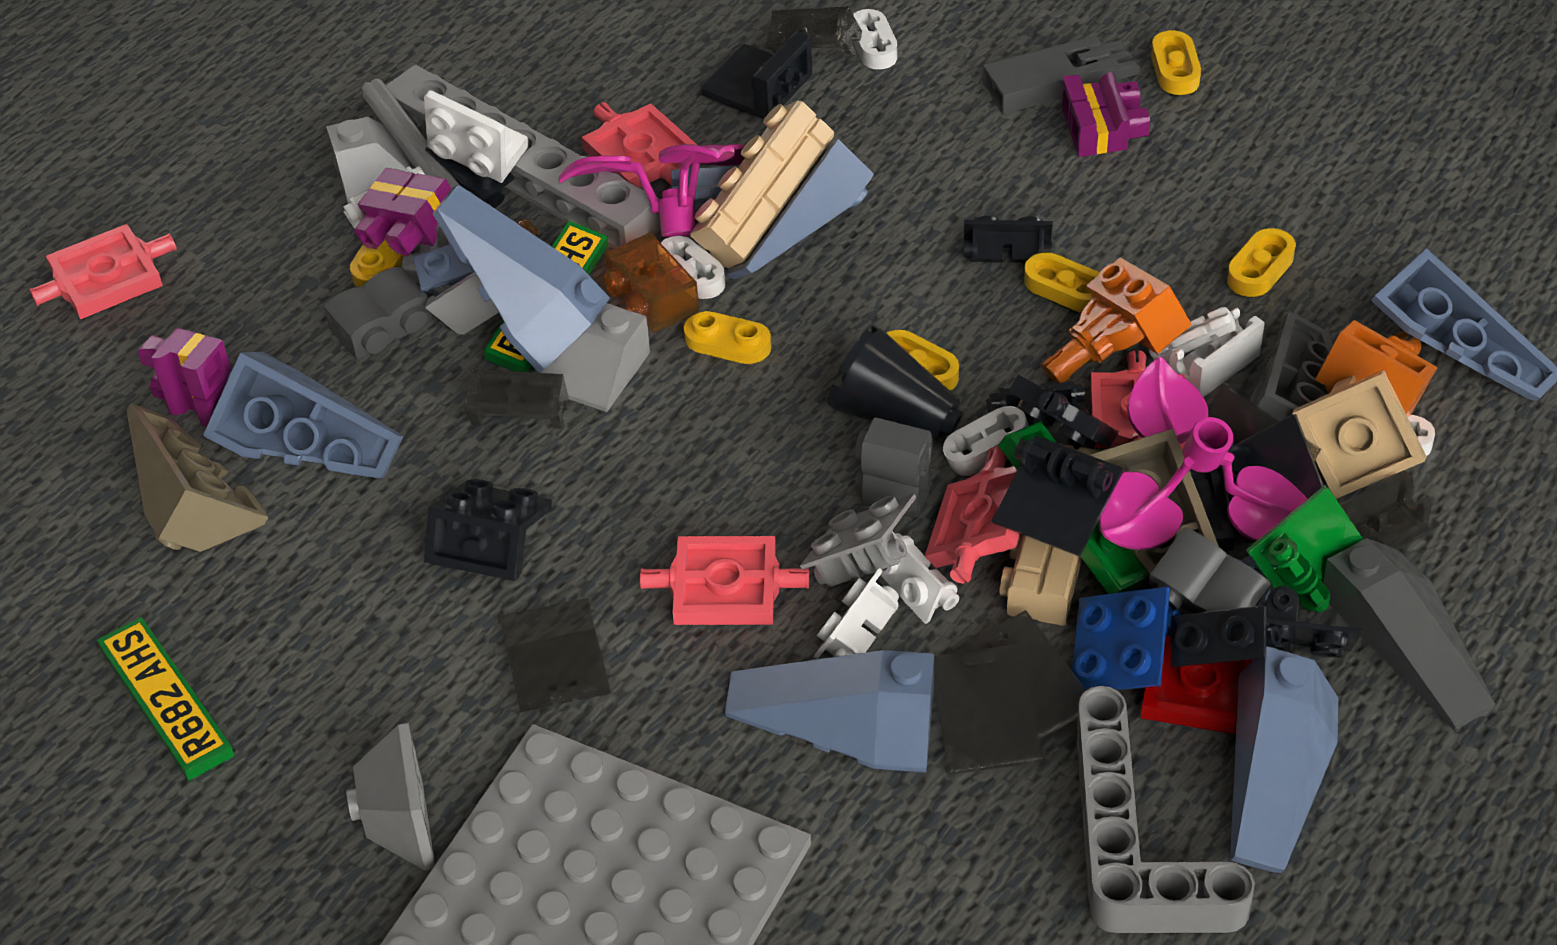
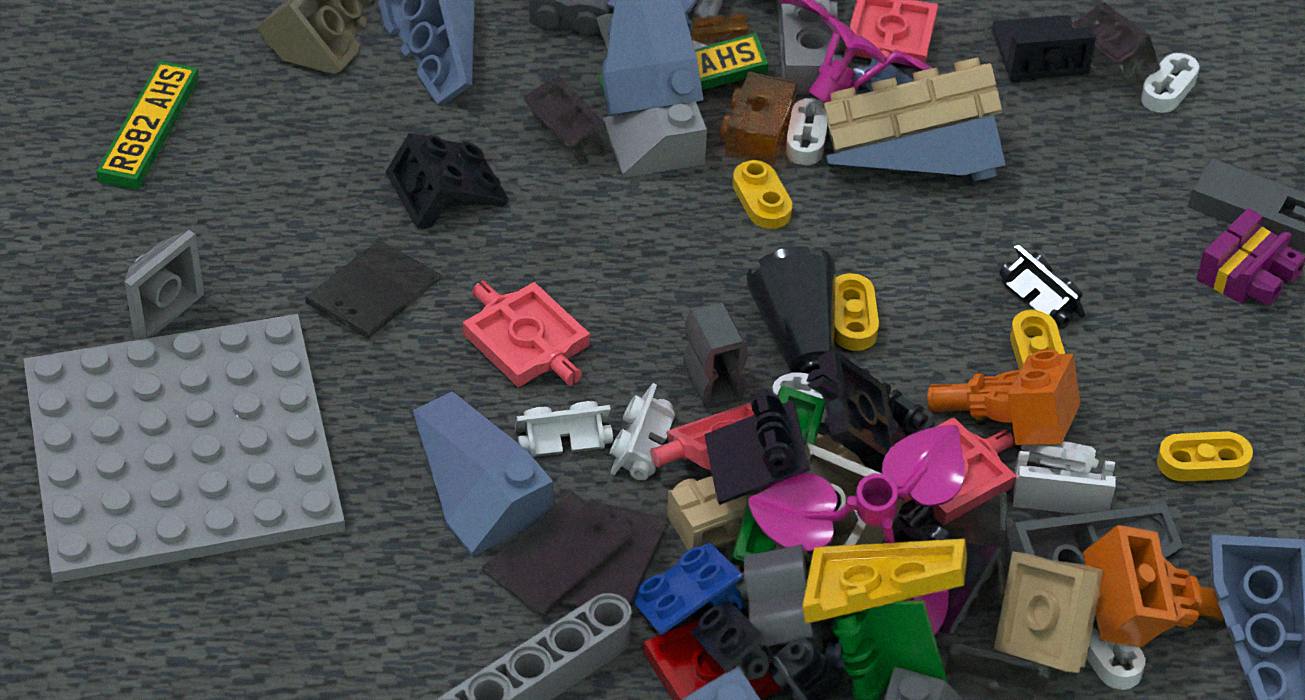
camera: 45 degrees right, 0 degrees up
(859, 542) = (621, 383): light grey hinge -> none
(1263, 498) = (880, 574): none -> yellow wing

